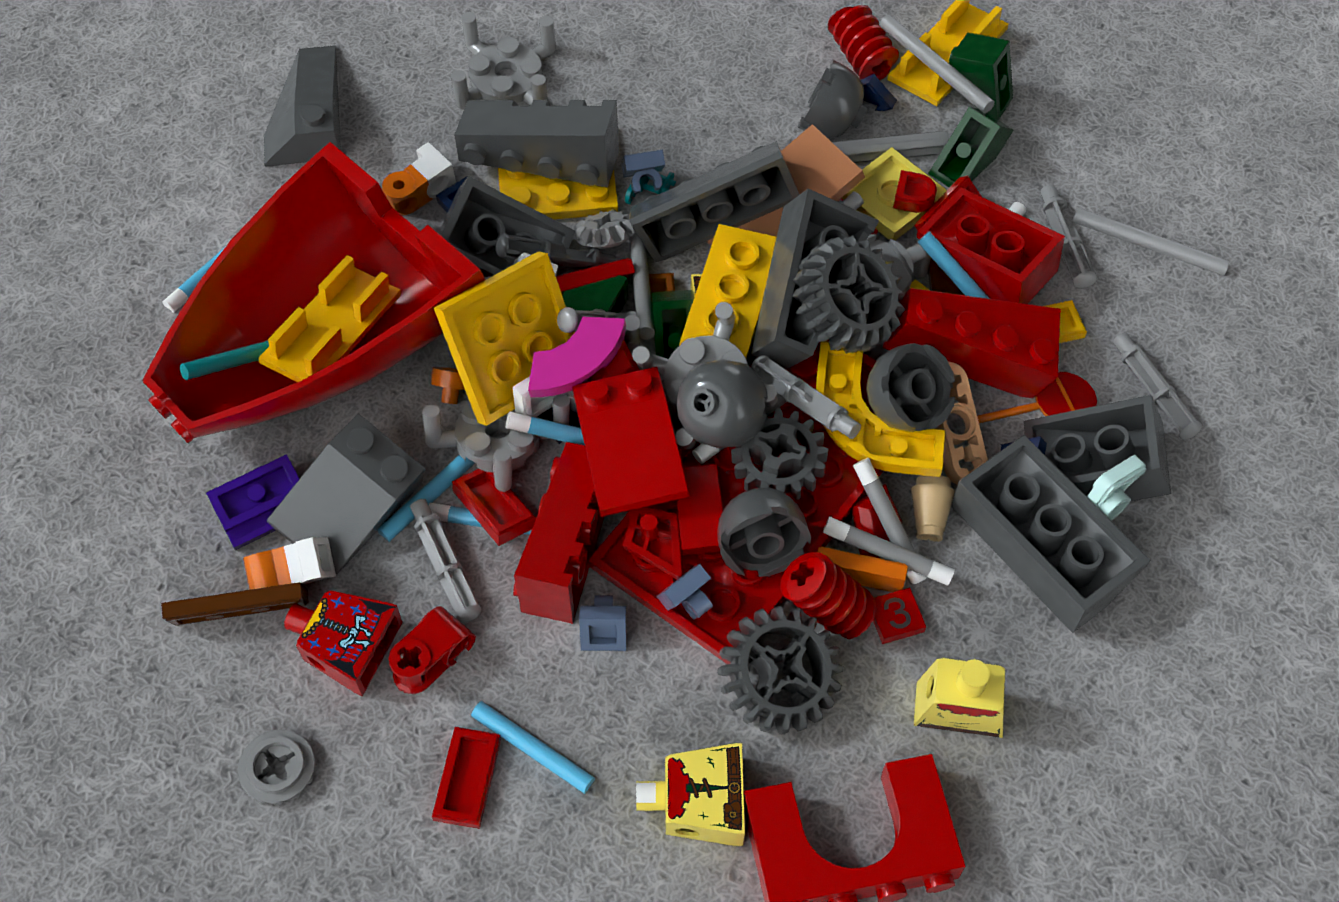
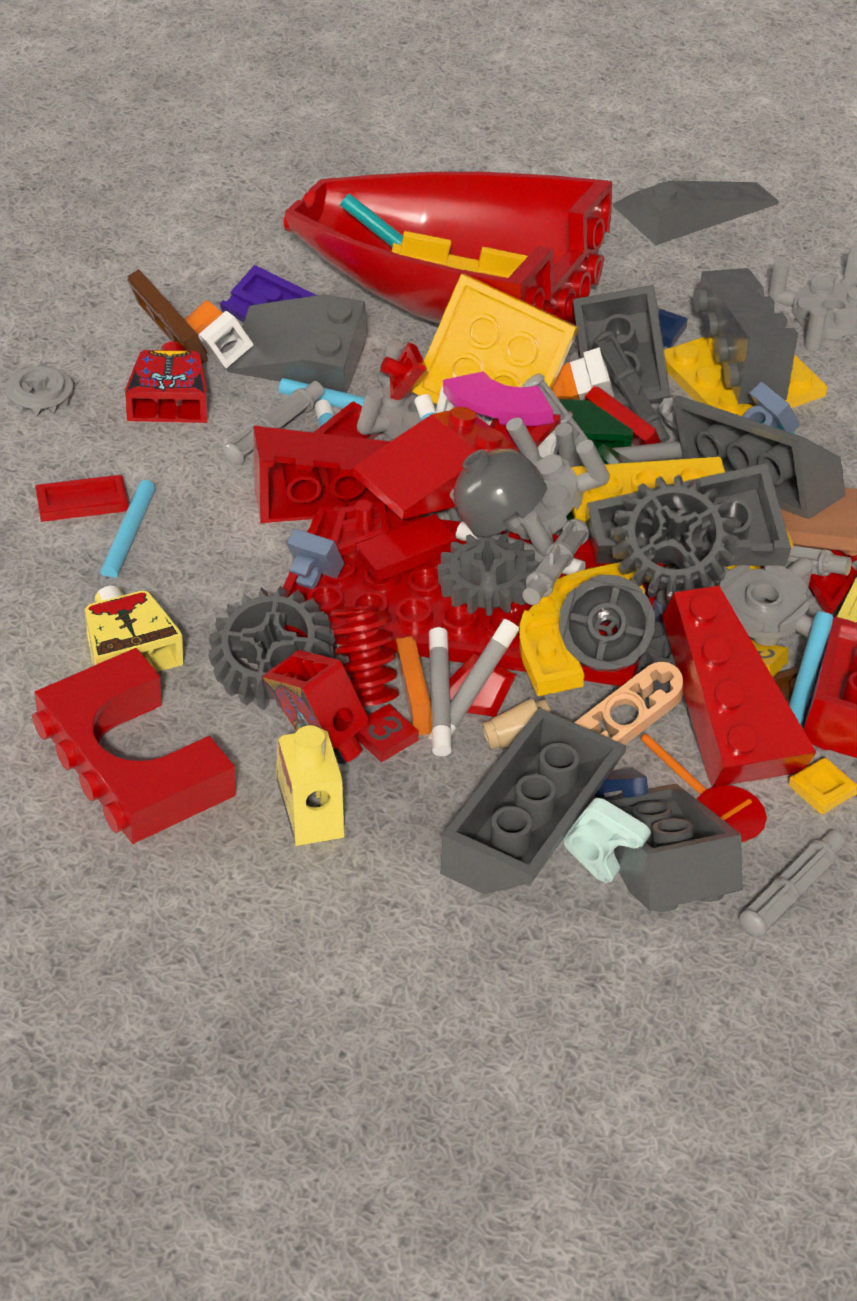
camera: 65 degrees right, 15 degrees down
(419, 181) = (672, 291): leg -> none
(433, 646) = (184, 435): red piece -> none
(474, 416) = (405, 371): none -> red piece
(602, 625) = (261, 530): sand blue tile -> none
(762, 532) = (396, 575): dark grey cylinder -> none
(889, 649) = (319, 694): none -> red torso

